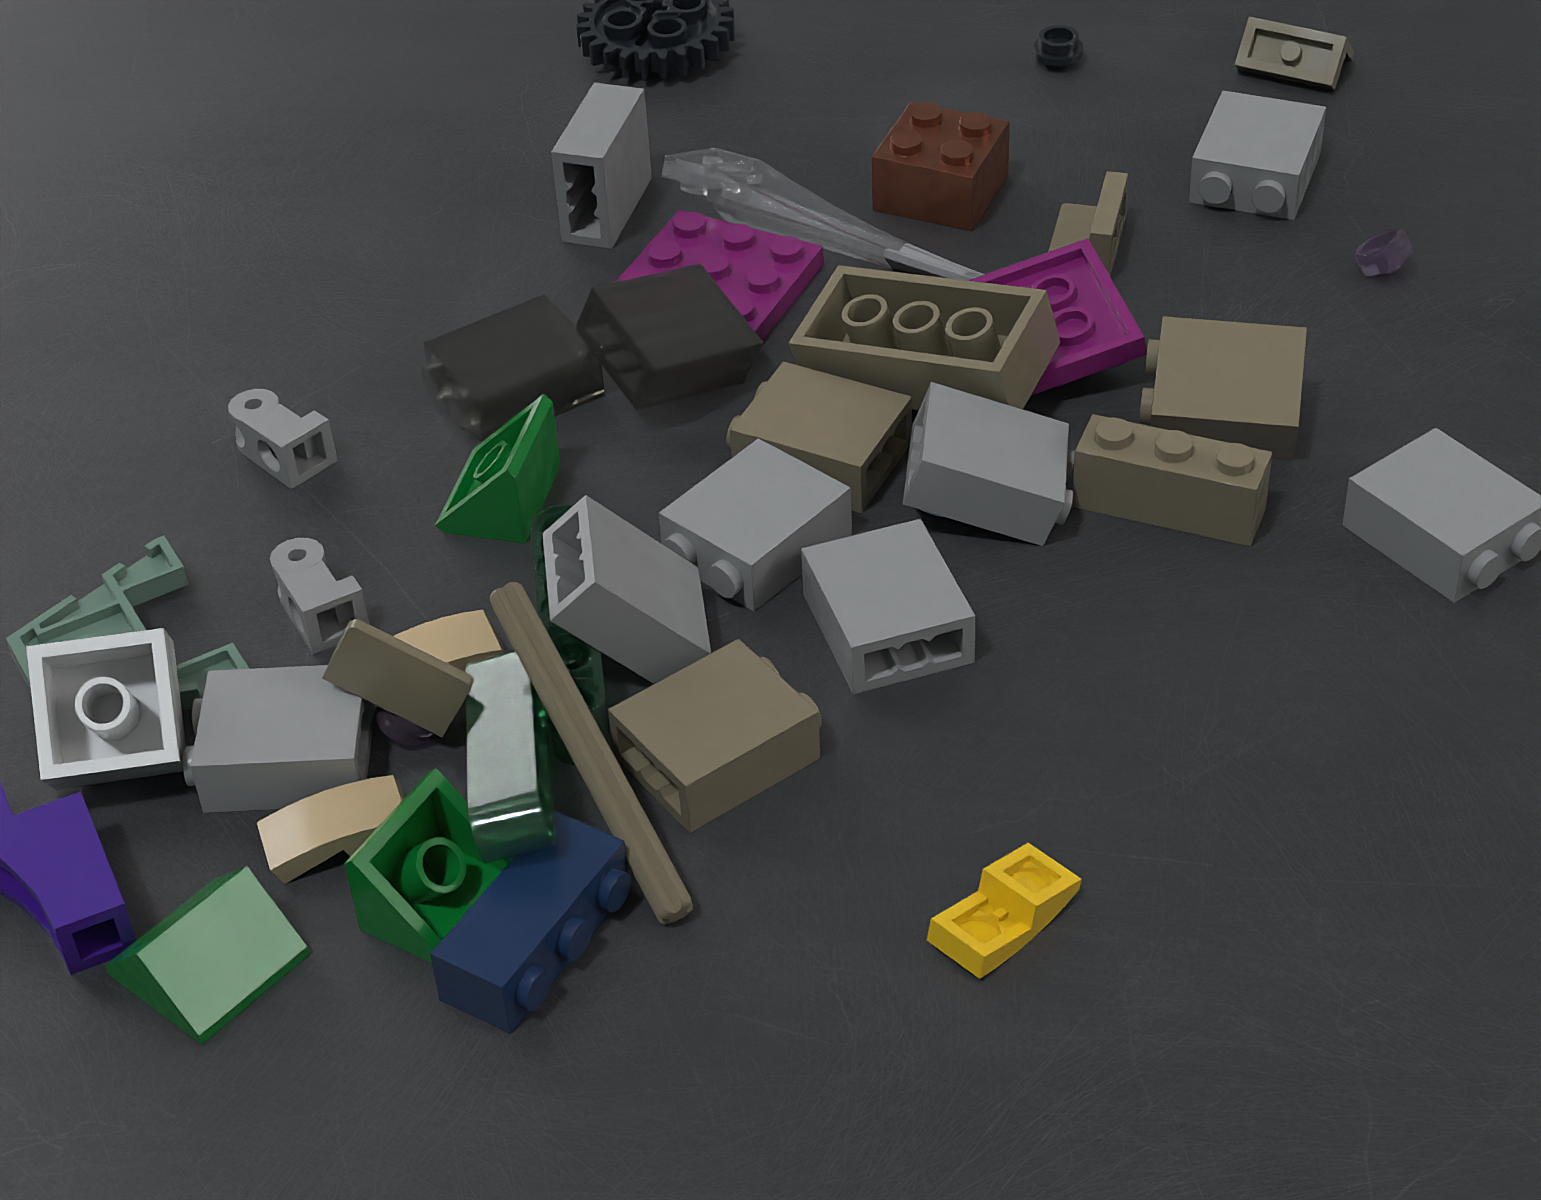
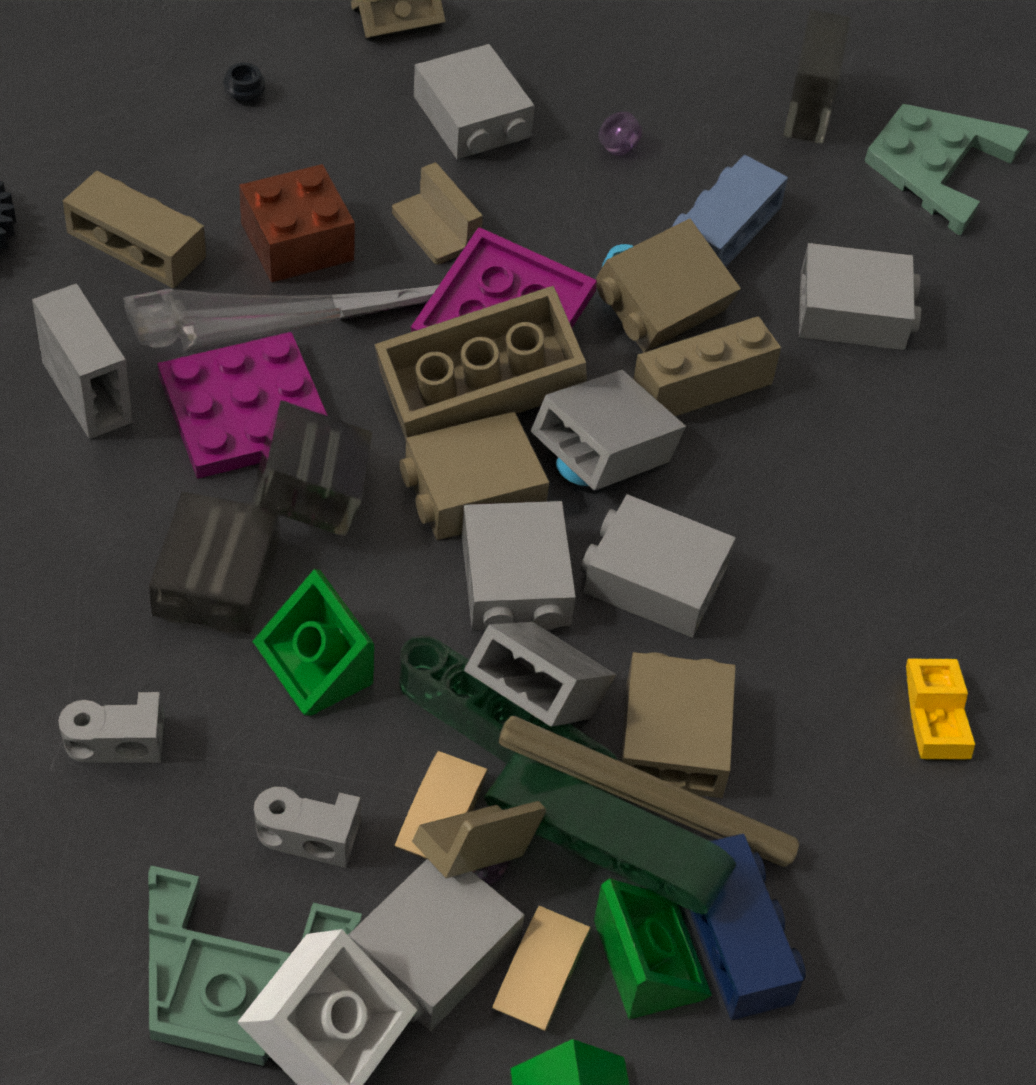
camera: 55 degrees left, 10 degrees up
(800, 106) = (135, 229): none -> dark tan brick
(1399, 374) = (737, 206): none -> sand blue brick

